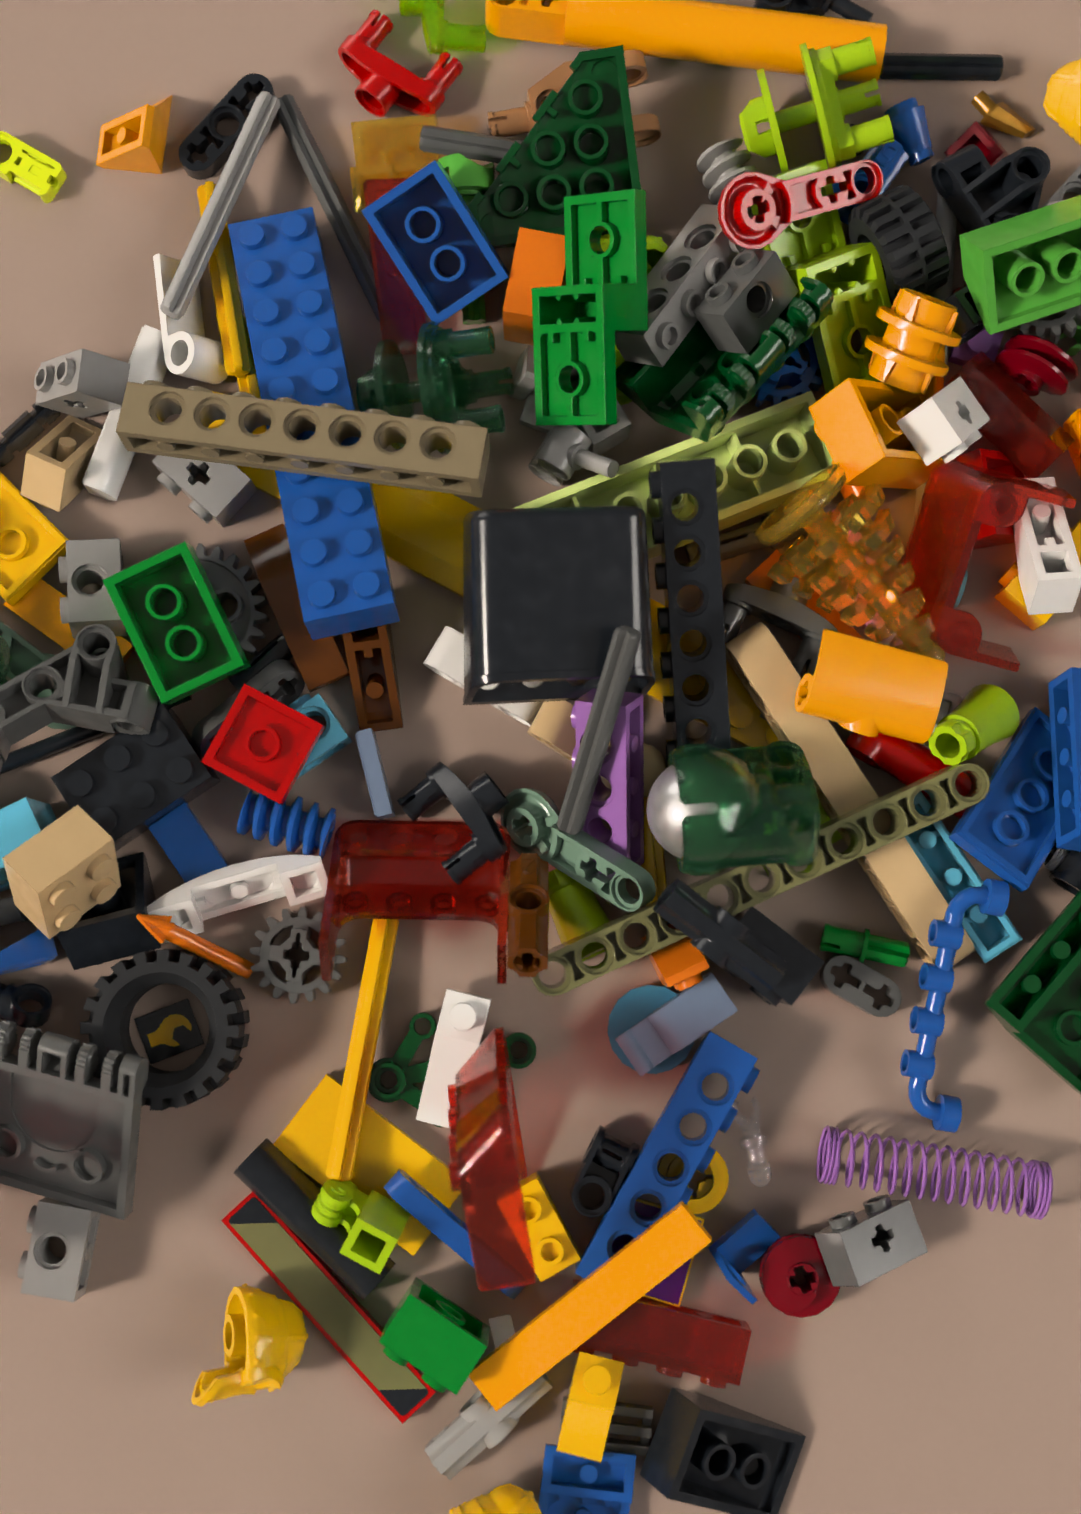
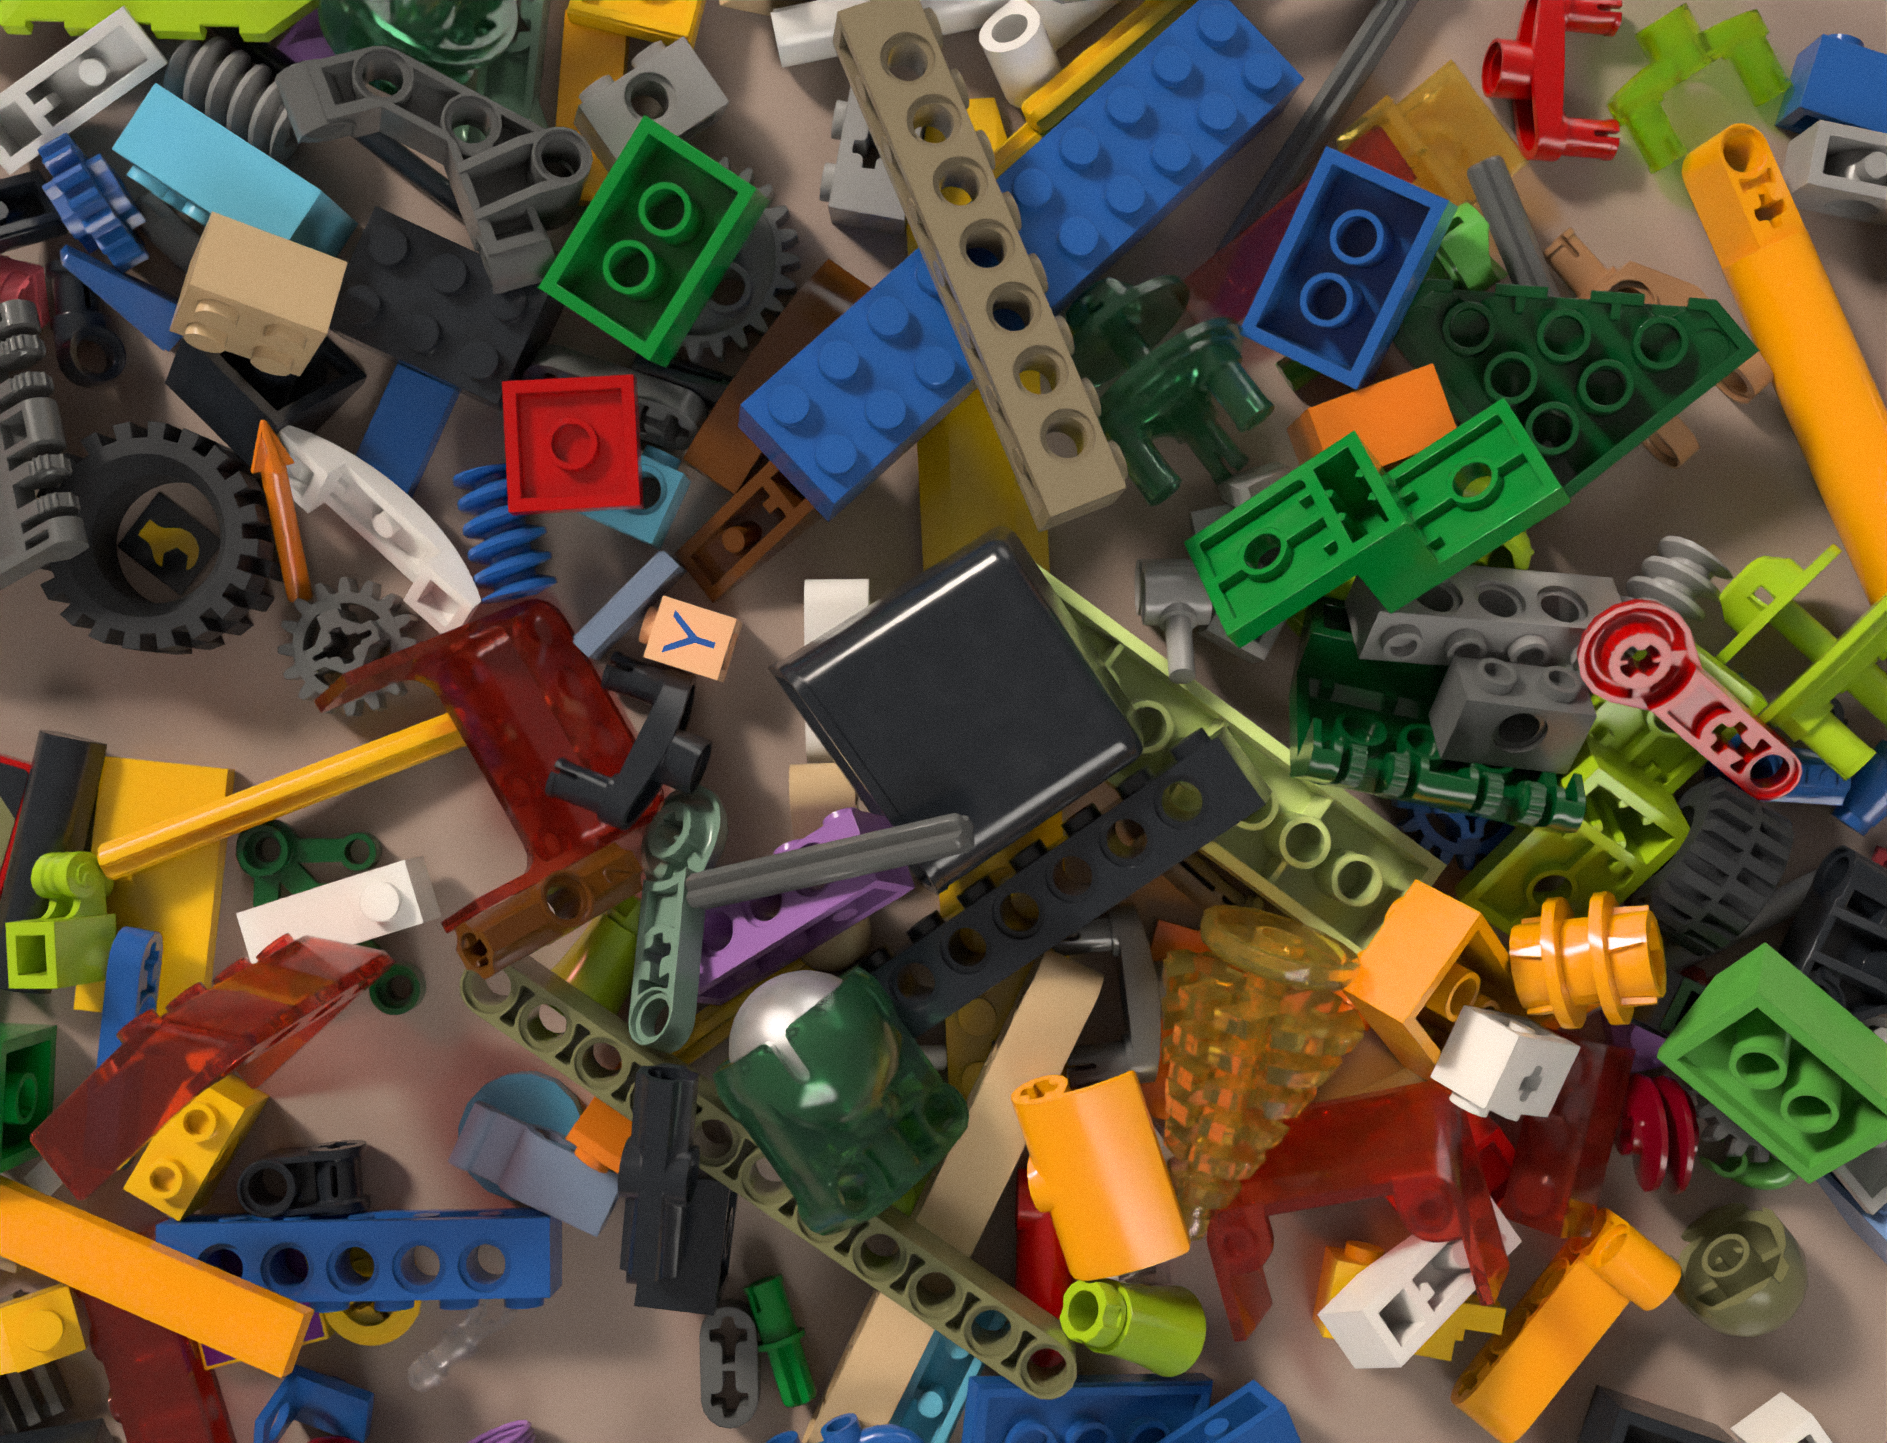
camera: 60 degrees right, 5 degrees up
(416, 750) = (690, 638): none -> light nougat brick

